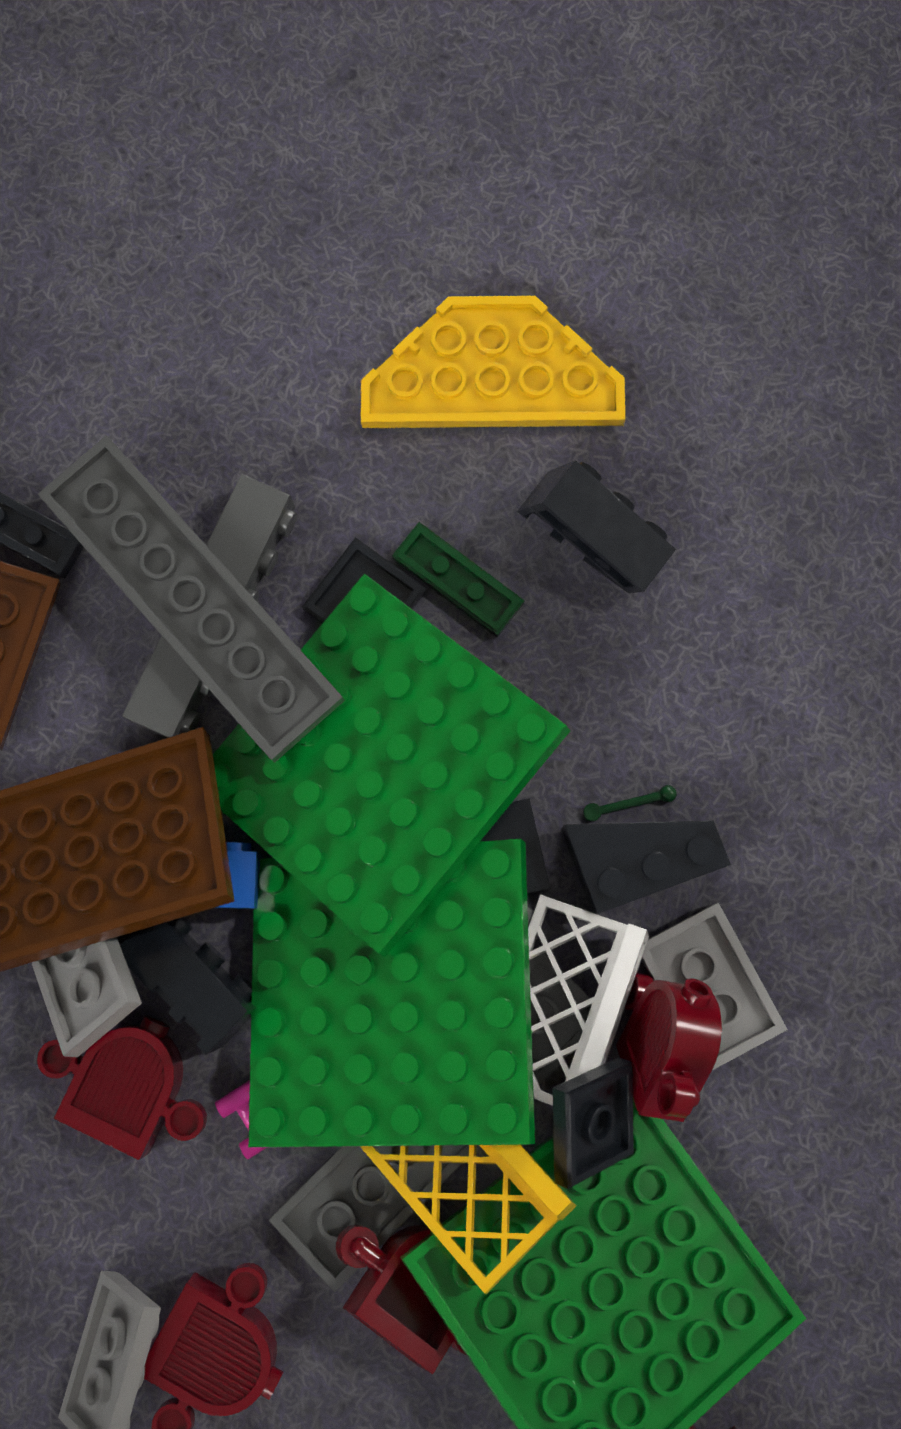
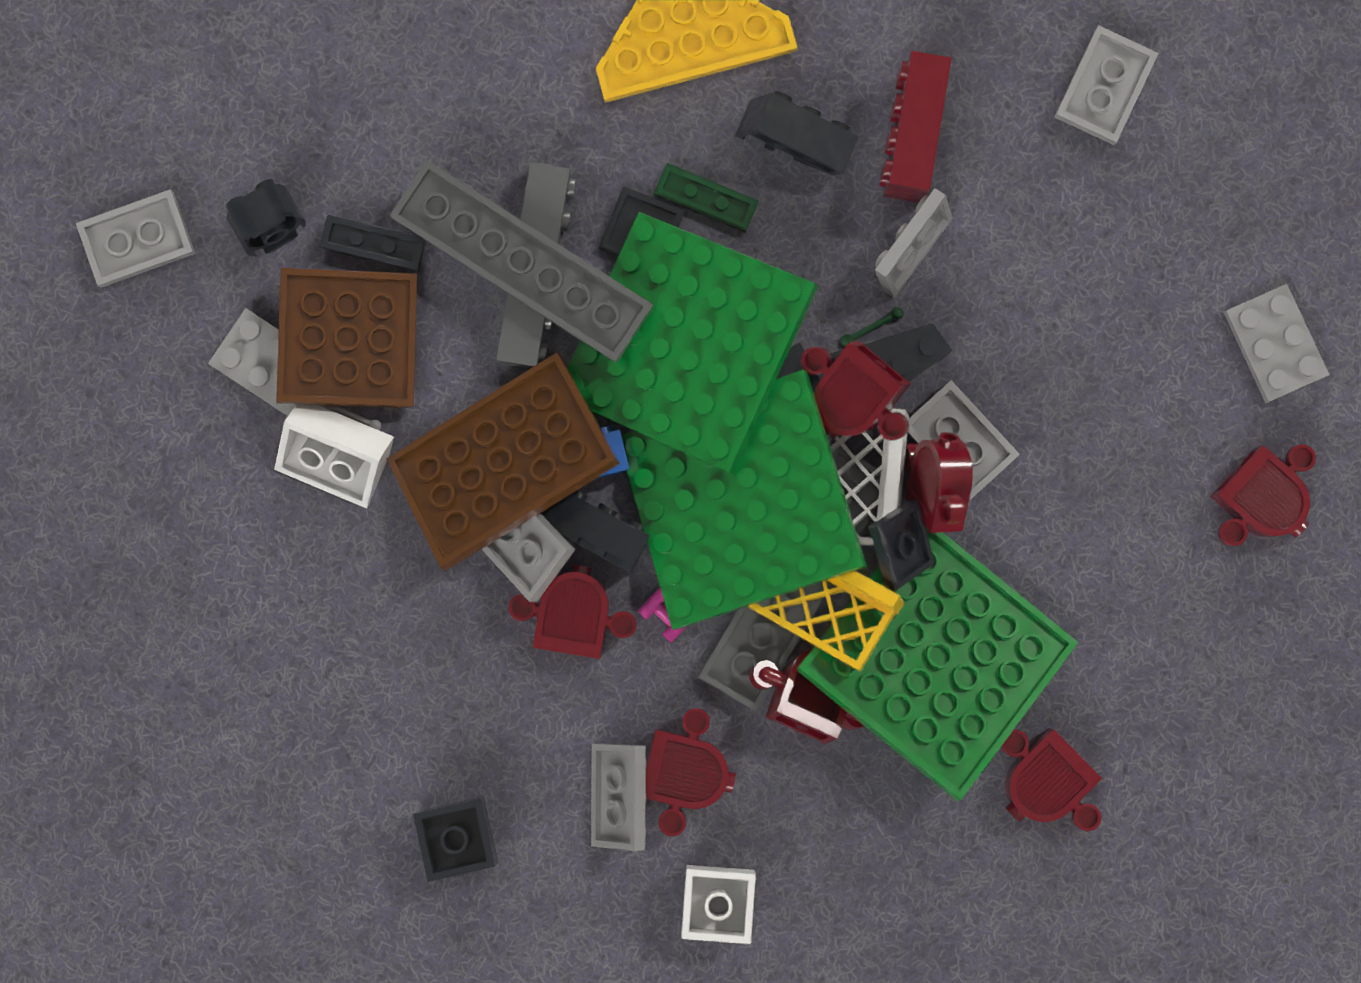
camera: 20 degrees left, 5 degrees up
(586, 889) = (857, 392): none -> dark red piece
(713, 705) = (913, 242): none -> light grey plate
(757, 555) = (917, 127): none -> dark red brick

